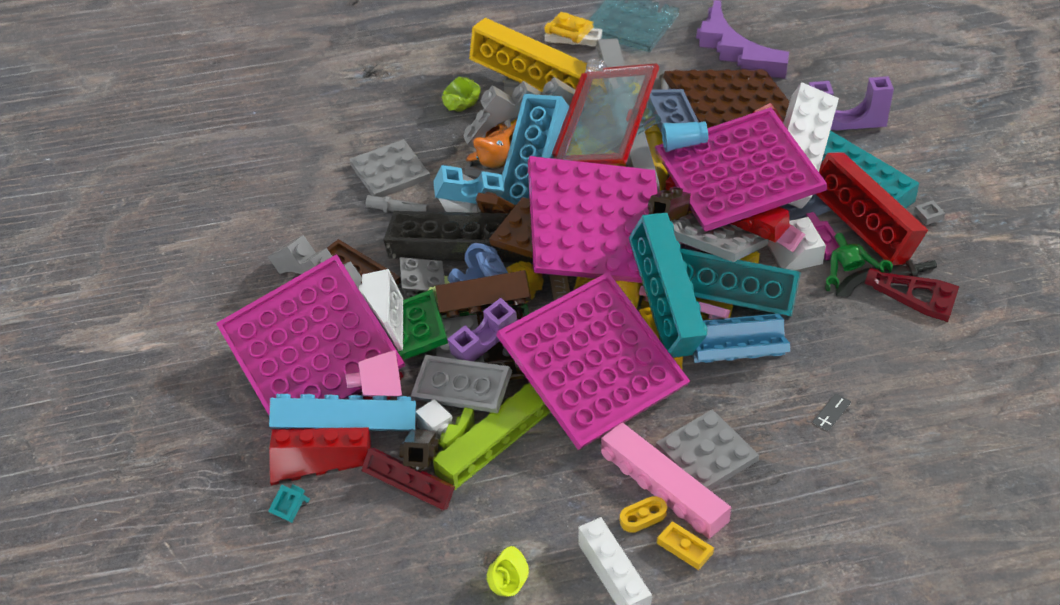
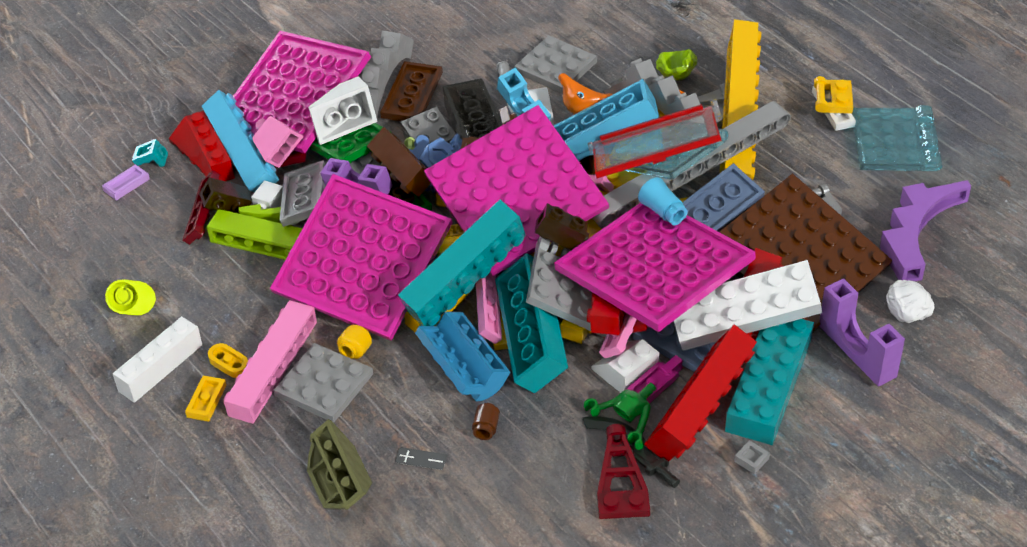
camera: 65 degrees right, 0 degrees up
(314, 538) = (125, 182): none -> lavender tile
(676, 410) = (354, 341): none -> yellow head
(814, 72) = (909, 301): none -> white hair
(818, 351) = (485, 421): none -> reddish brown brick
(837, 468) = (336, 468): none -> olive wedge

